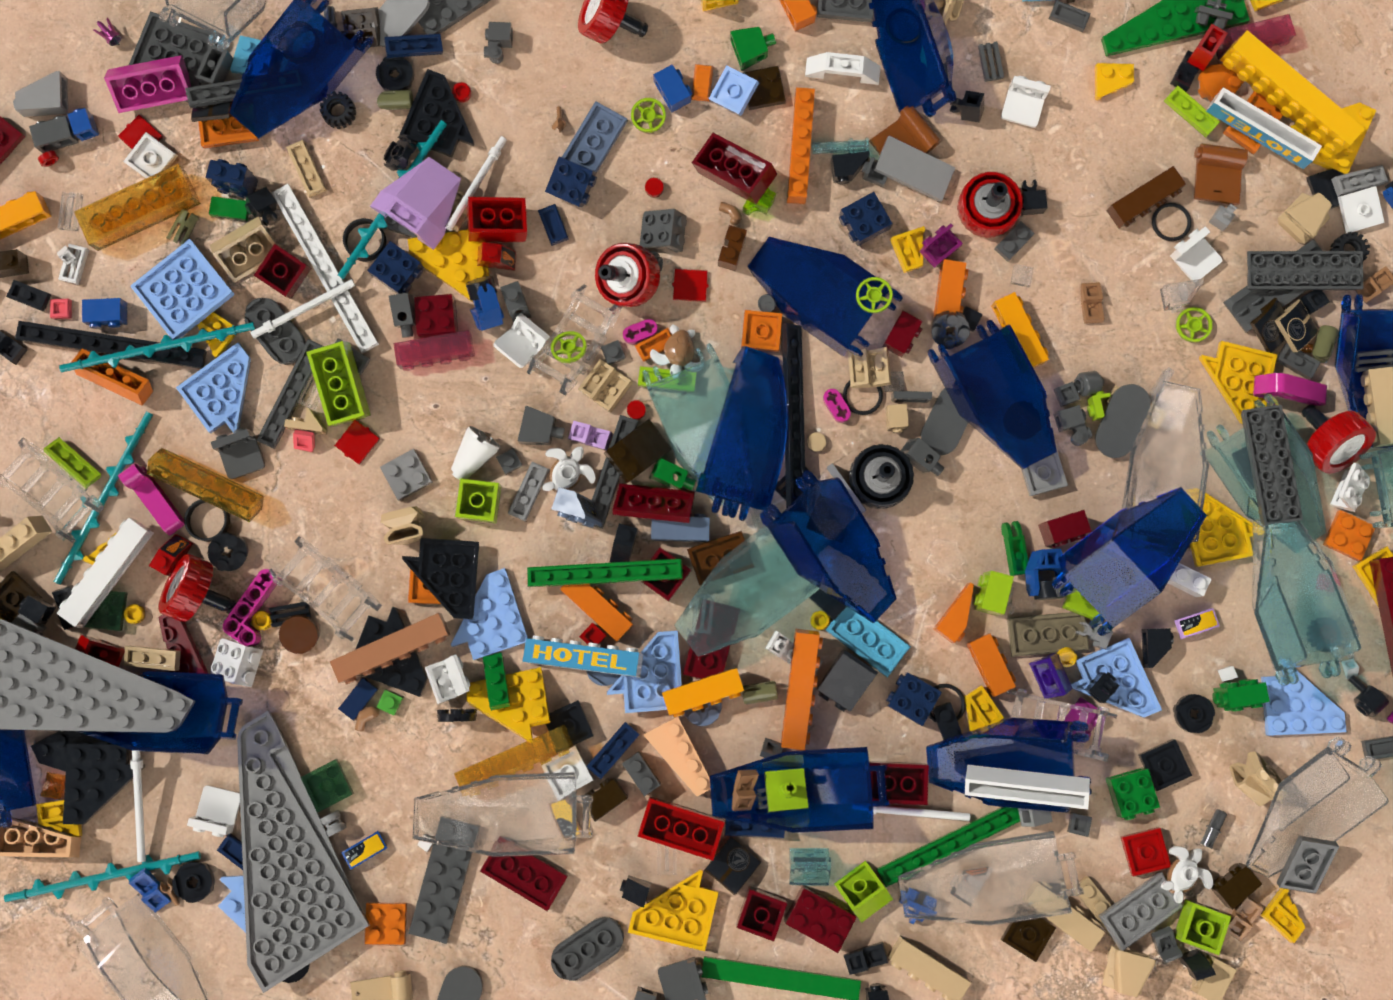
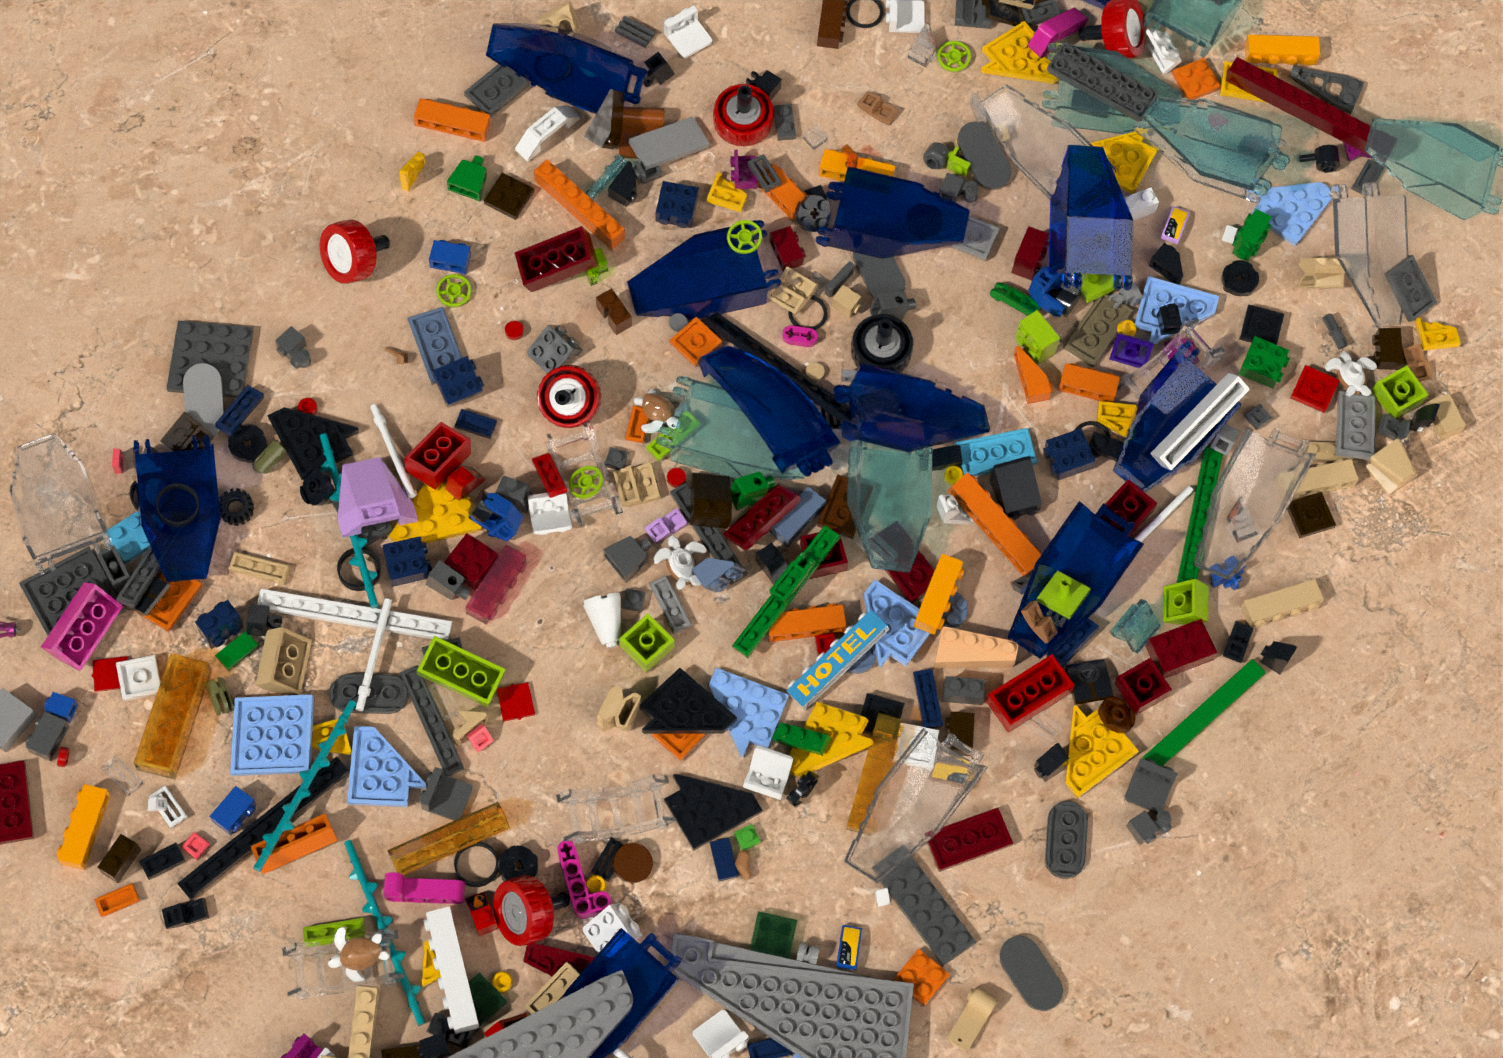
camera: 55 degrees left, 15 degrees down
(59, 494) = (356, 953): none -> medium nougat animal
(282, 271) = (330, 645): dark red brick -> none
(283, 53) = (182, 487): none -> black tyre
(390, 648) = (706, 796): nougat brick -> none
(406, 474) = (575, 684): light grey plate -> none
(552, 315) = (549, 475): none -> red tile
(613, 570) = (791, 578): none -> green hinge
(638, 327) = (614, 426): dark pink beam -> none
(690, 285) = (613, 365): red piece -> none
(702, 82) = (464, 233): orange tile -> none
(720, 910) = (1116, 715): none -> reddish brown tile
(732, 211) = (584, 290): medium nougat arm -> none
(733, 90) = (493, 215): light blue plate -> none
(760, 692) = (973, 557): olive arm -> none
(887, 107) = (608, 122): none -> dark brown slope
(945, 278) = (772, 185): none -> dark grey tile
(1024, 320) = (852, 156): none -> clear orange arm
(1066, 394) = (931, 176): dark grey plate -> none
(1350, 668) = (1294, 153): white piece -> none

